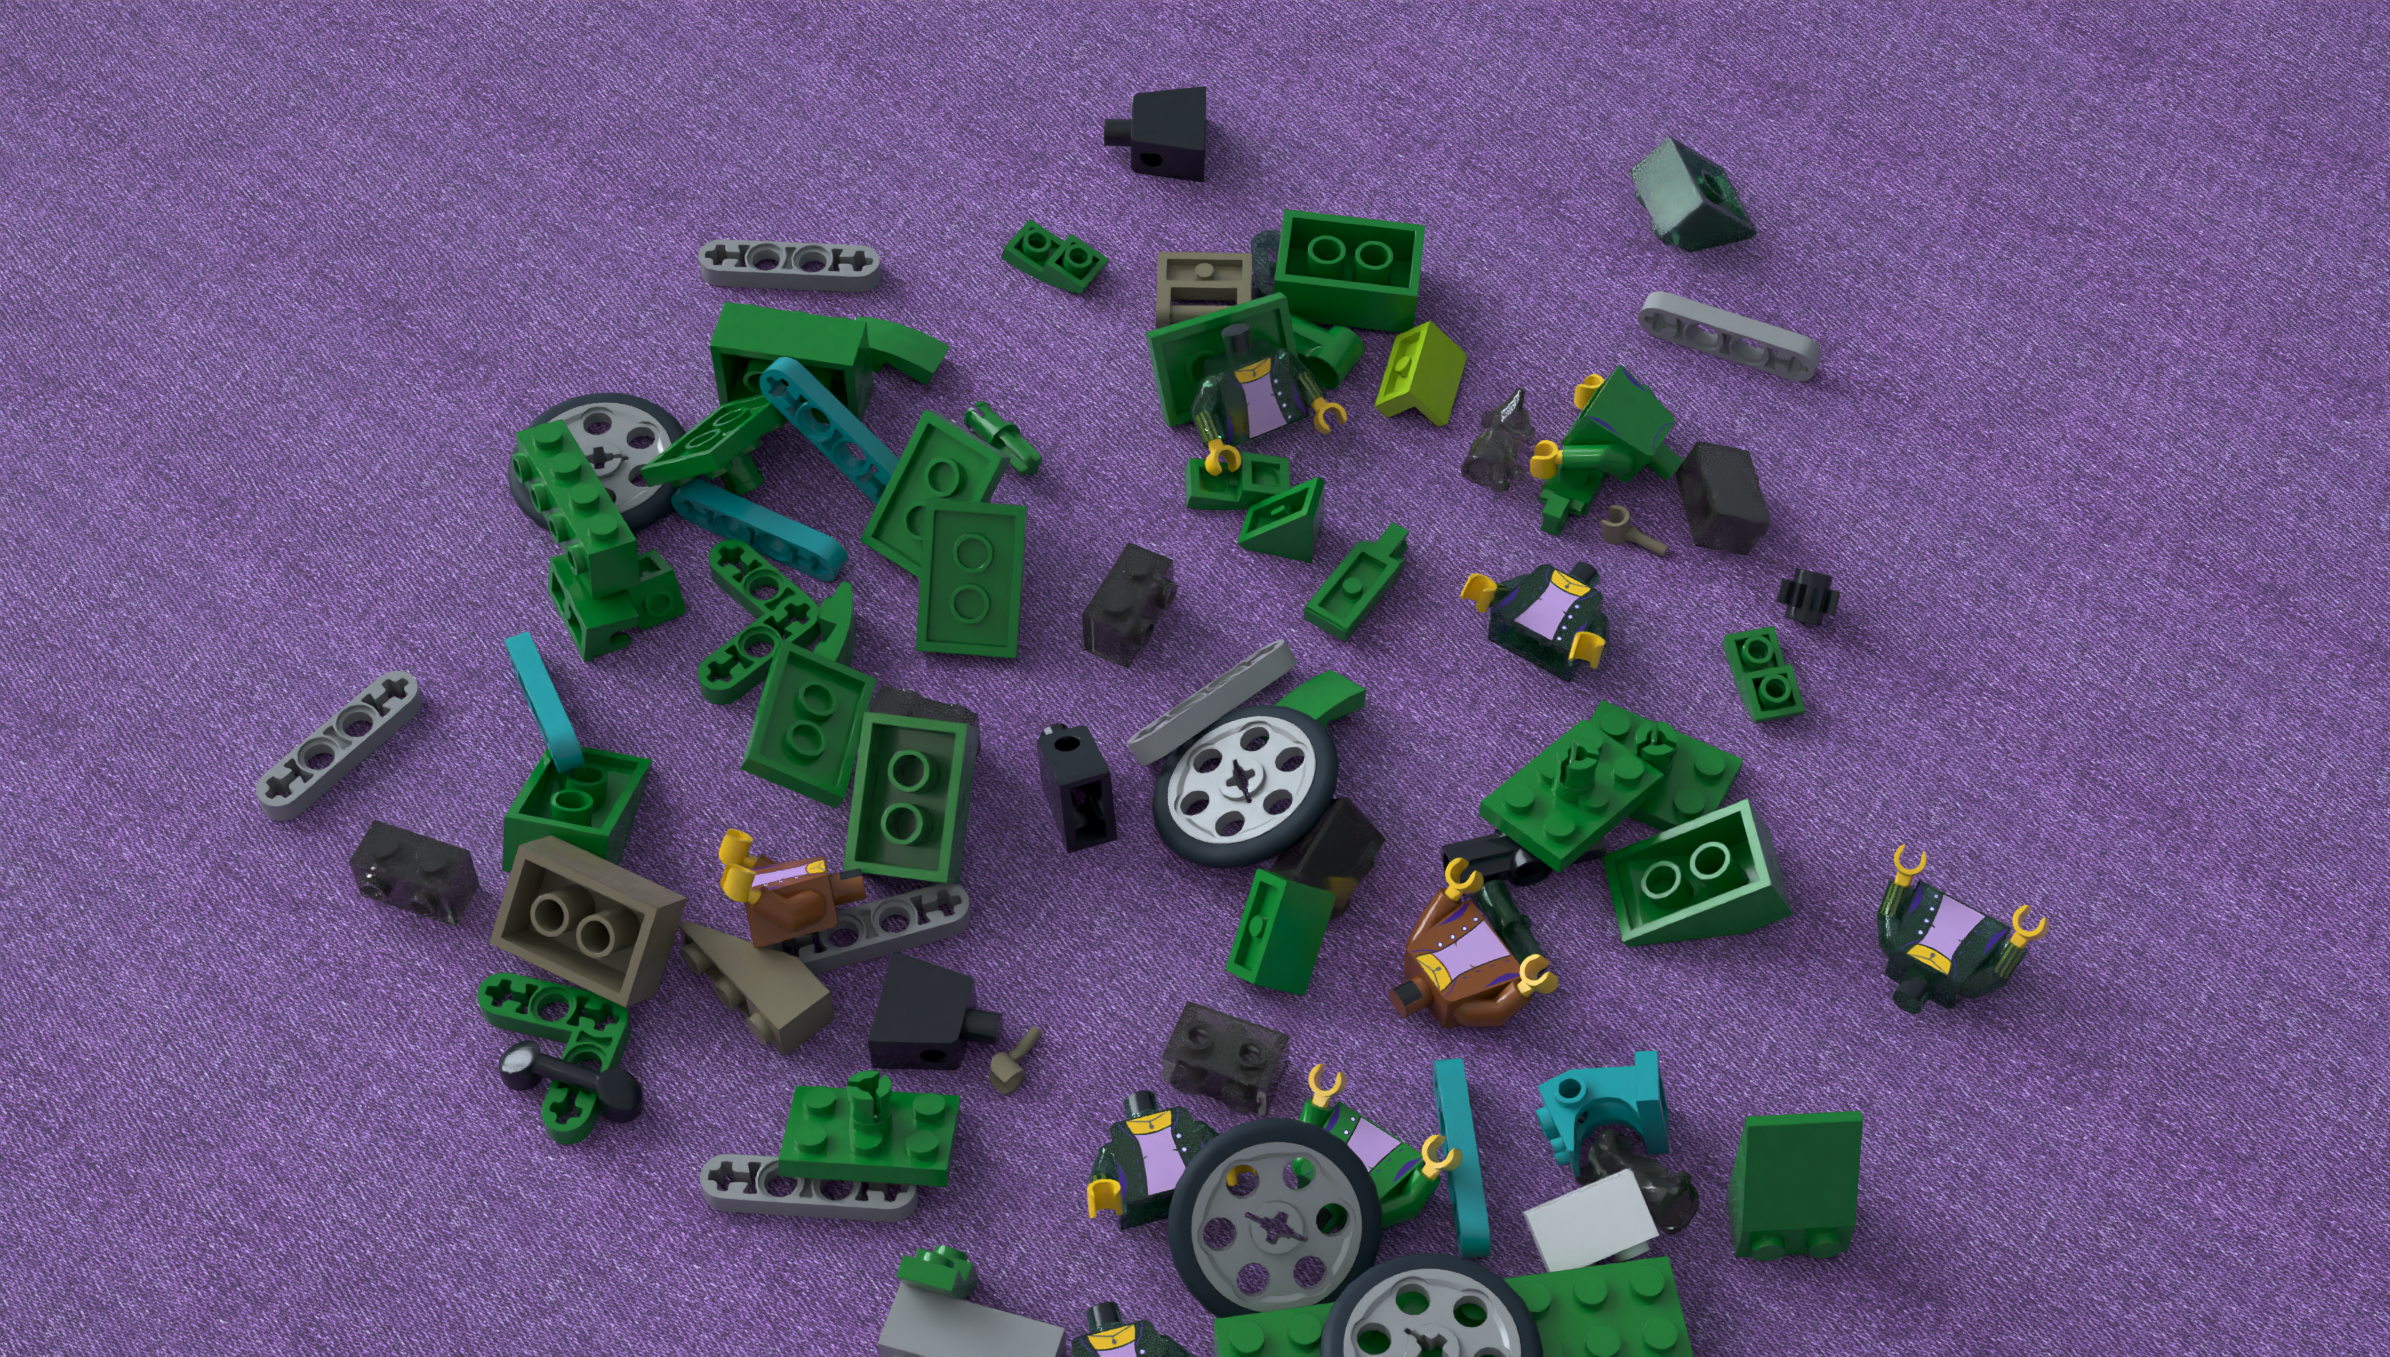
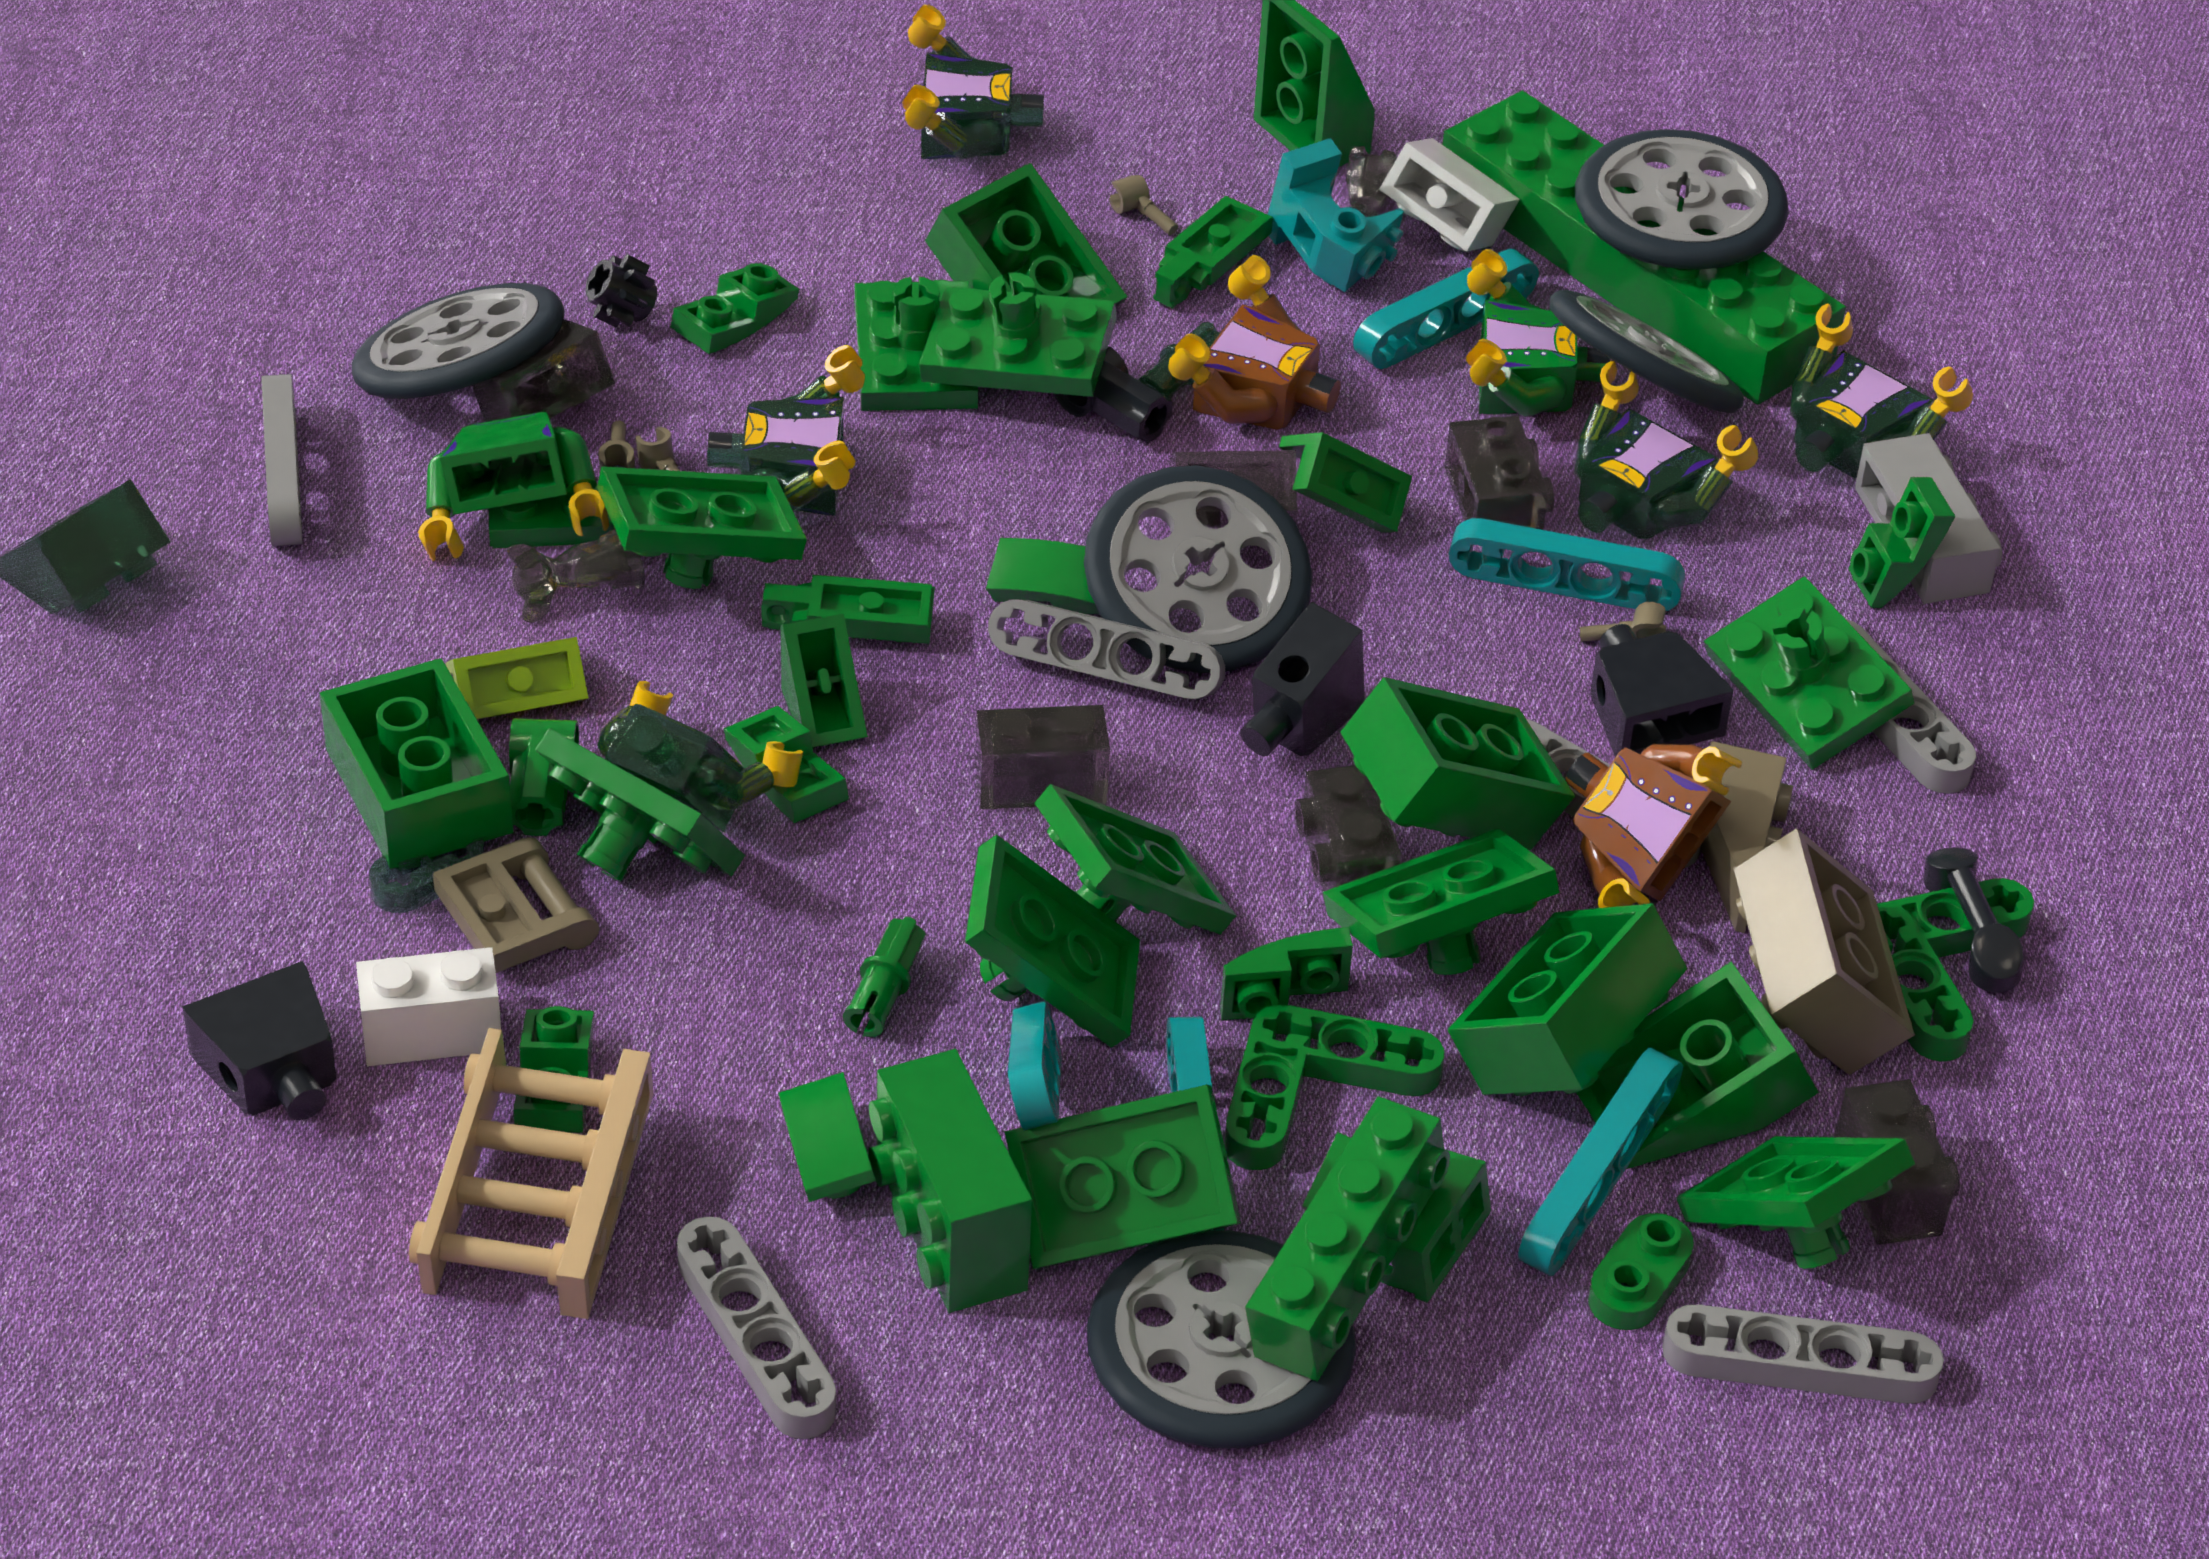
camera: 125 degrees left, 10 degrees down
(426, 774) = (1799, 1188): none -> green plate
(468, 699) = (1652, 1261): none -> green plate
(669, 747) = (1568, 1000): none -> green brick
(957, 236) = (587, 1209): none -> tan fence
(1099, 1050) = (1568, 556): none -> teal beam
(1138, 208) = (427, 1005): none -> white brick
(1480, 498) = (700, 519): none -> green plate
(1610, 557) = (657, 454): none -> dark tan hand
(1648, 1024) = (1209, 249): none -> green hinge
(1758, 1021) = (1134, 194): none -> dark tan hand
(1775, 499) = (457, 340): none -> wedge

